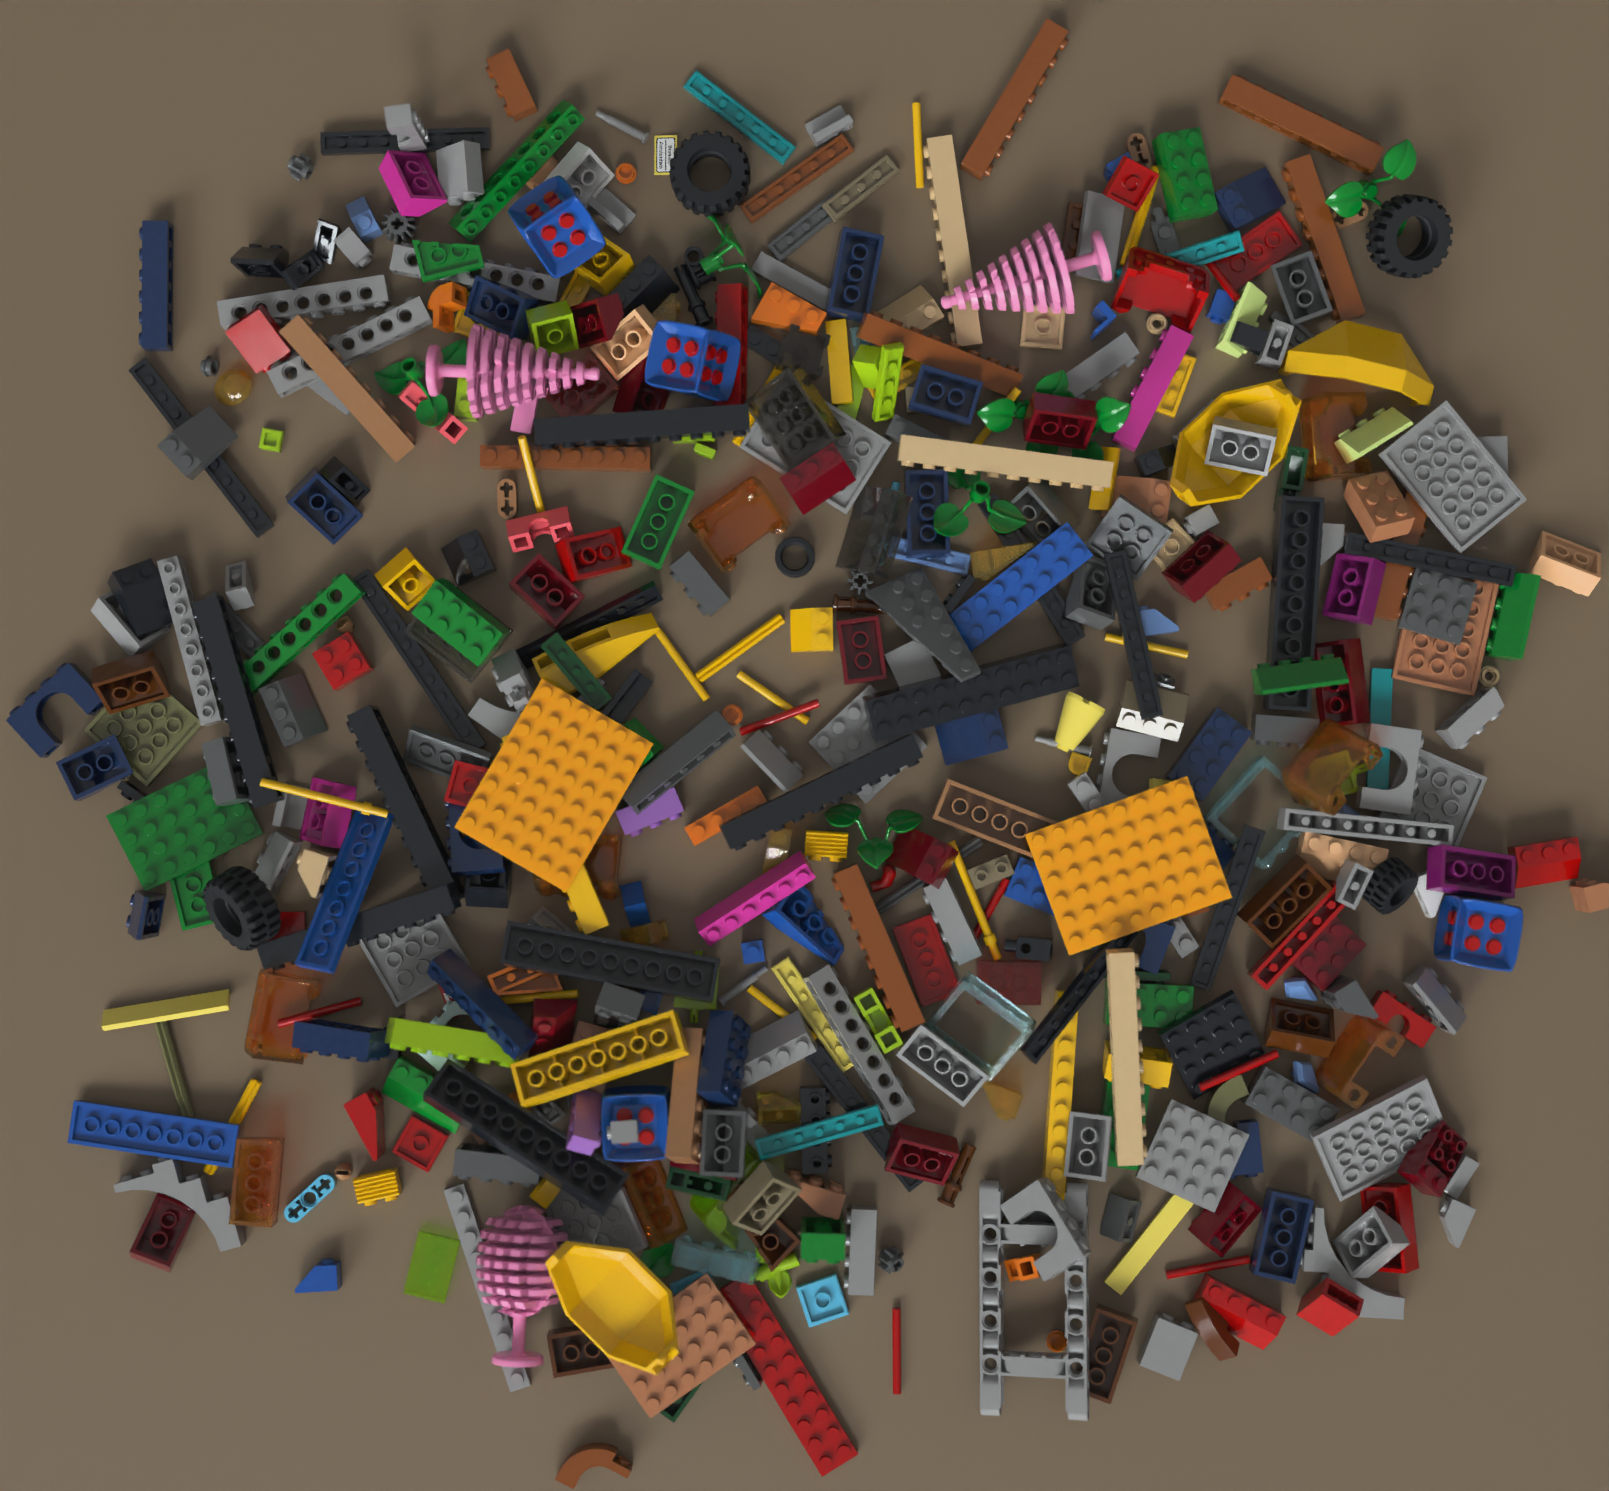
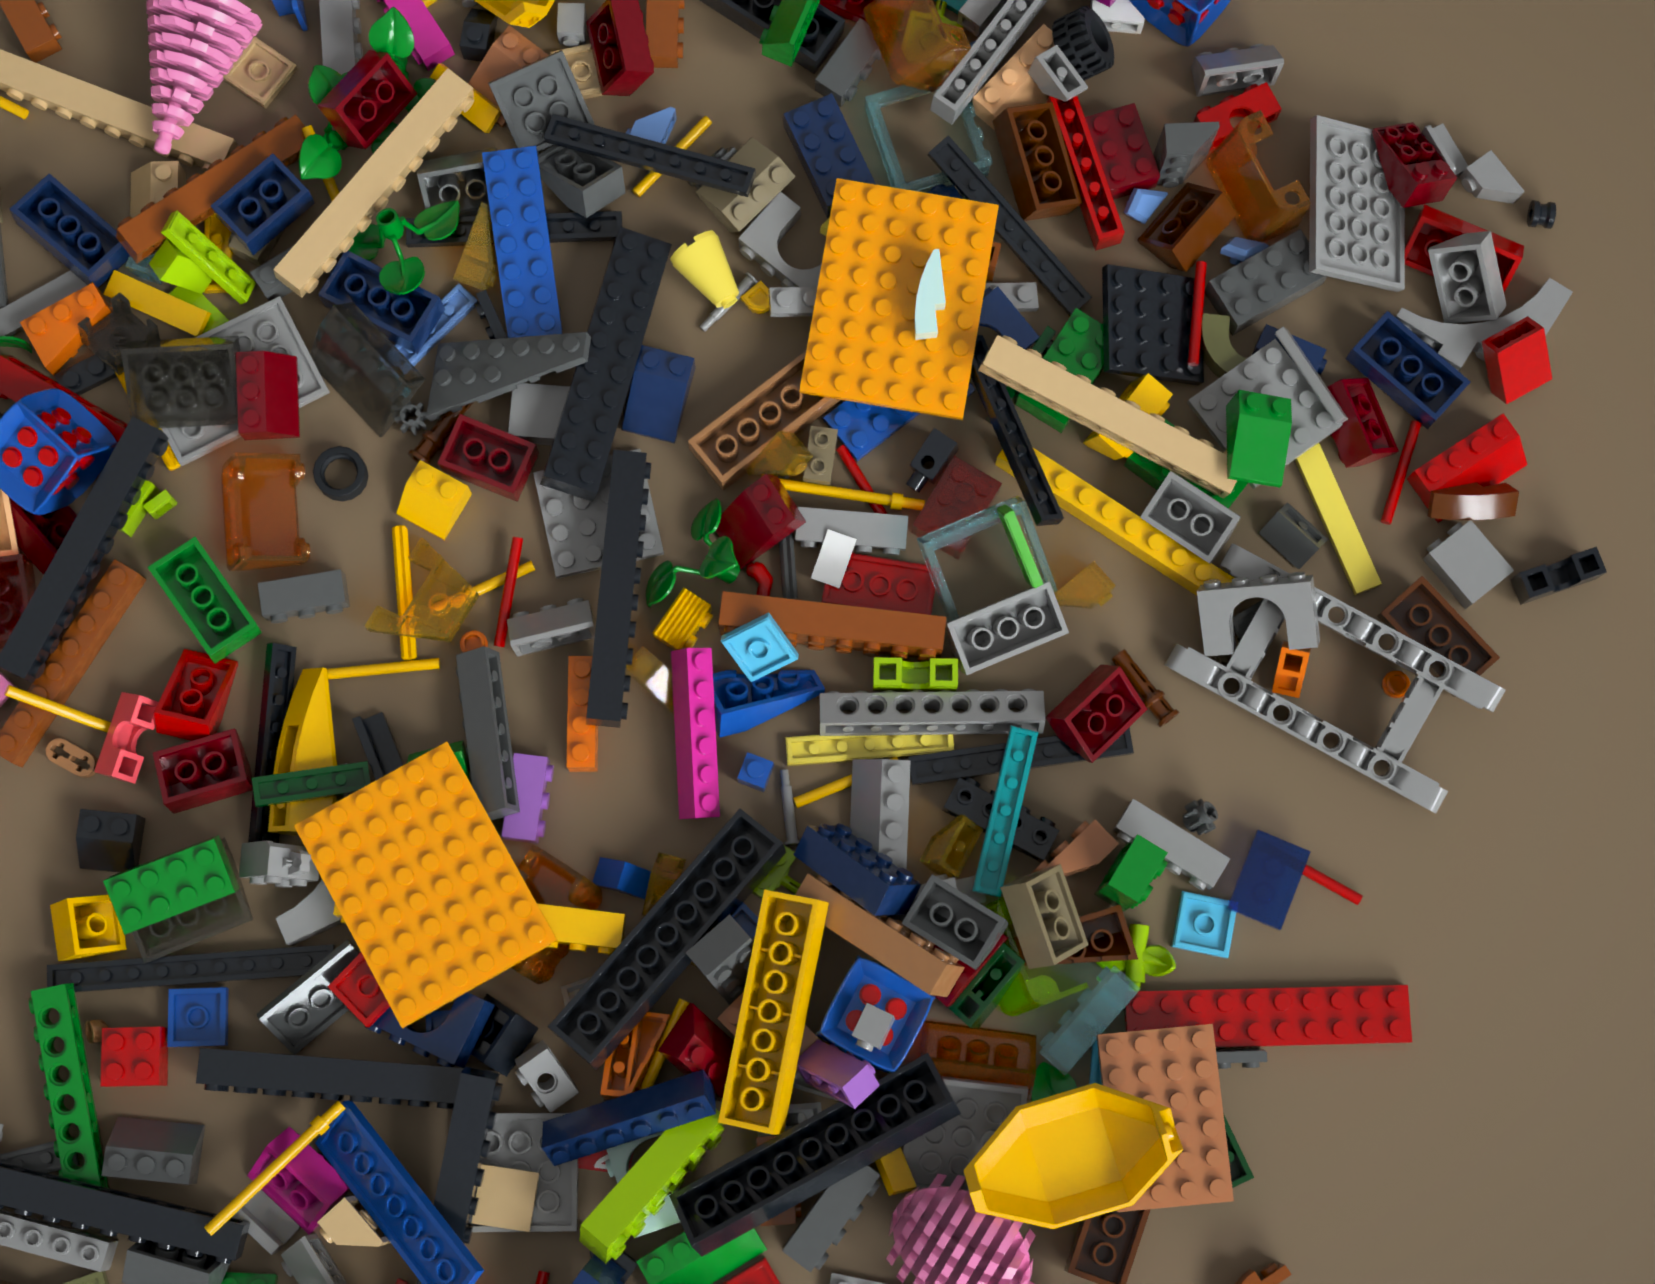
camera: 60 degrees left, 10 degrees down
(391, 685) = (198, 1017): none -> blue plate
(391, 952) = (506, 1198): none -> tan tile
(487, 923) = (537, 1062): none -> light grey brick
(742, 677) = (436, 608): none -> clear yellow wing
(834, 909) = (759, 647): none -> medium azure tile
(874, 1327) = (1268, 880): none -> clear blue tile
(925, 920) = (833, 558): none -> white sticker
(973, 848) = (781, 457): none -> clear yellow slope
(1000, 1044) = (1019, 546): none -> bright green tile
(1137, 888) = (929, 298): none -> light aqua slope
(1166, 1164) = (1257, 437): none -> green slope
(1194, 1412) = (1565, 574): none -> black arch
(1236, 1174) = (1311, 375): none -> light grey tile
(1450, 1267) = (1541, 214): none -> black wheel

